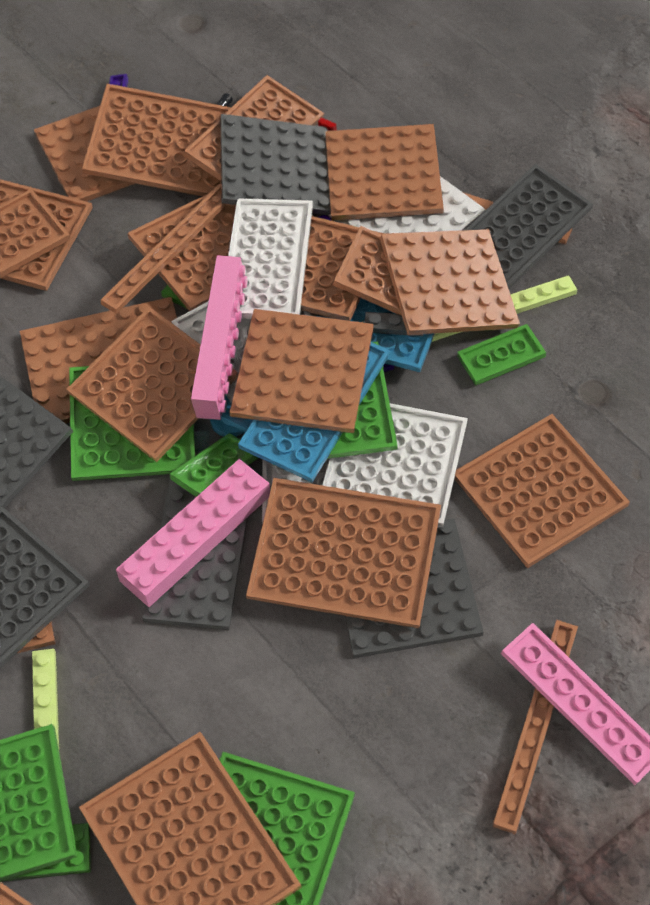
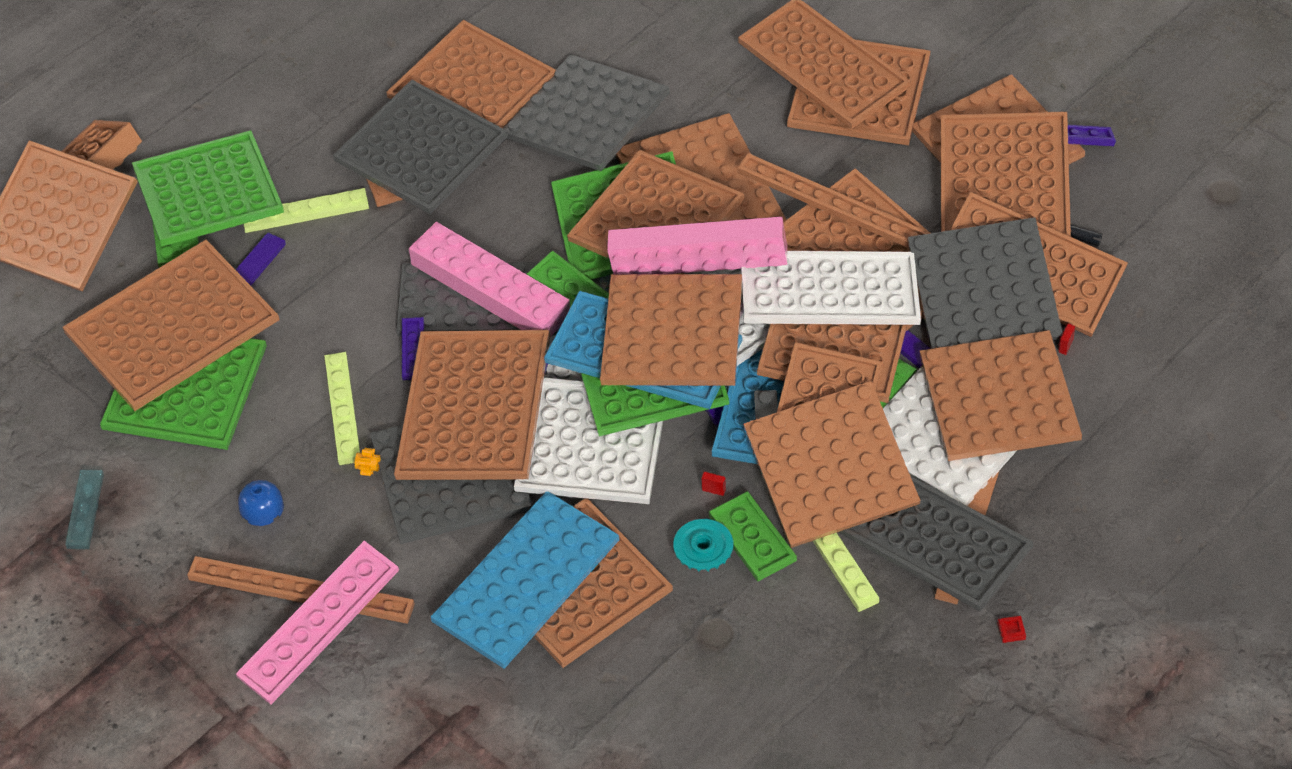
camera: 85 degrees right, 5 degrees down
(102, 759) = (260, 257): none -> dark purple tile
(255, 611) = (410, 339): none -> dark purple tile
(315, 681) = (342, 407): none -> yellowish green plate
(391, 655) = (367, 461): none -> light orange gear
(427, 761) = (260, 502): none -> blue cylinder
(445, 376) = (713, 483): none -> red tile
(515, 377) = (703, 534): none -> teal gear
(542, 524) = (525, 579): none -> dark azure plate
(599, 198) = (1011, 629): none -> red tile

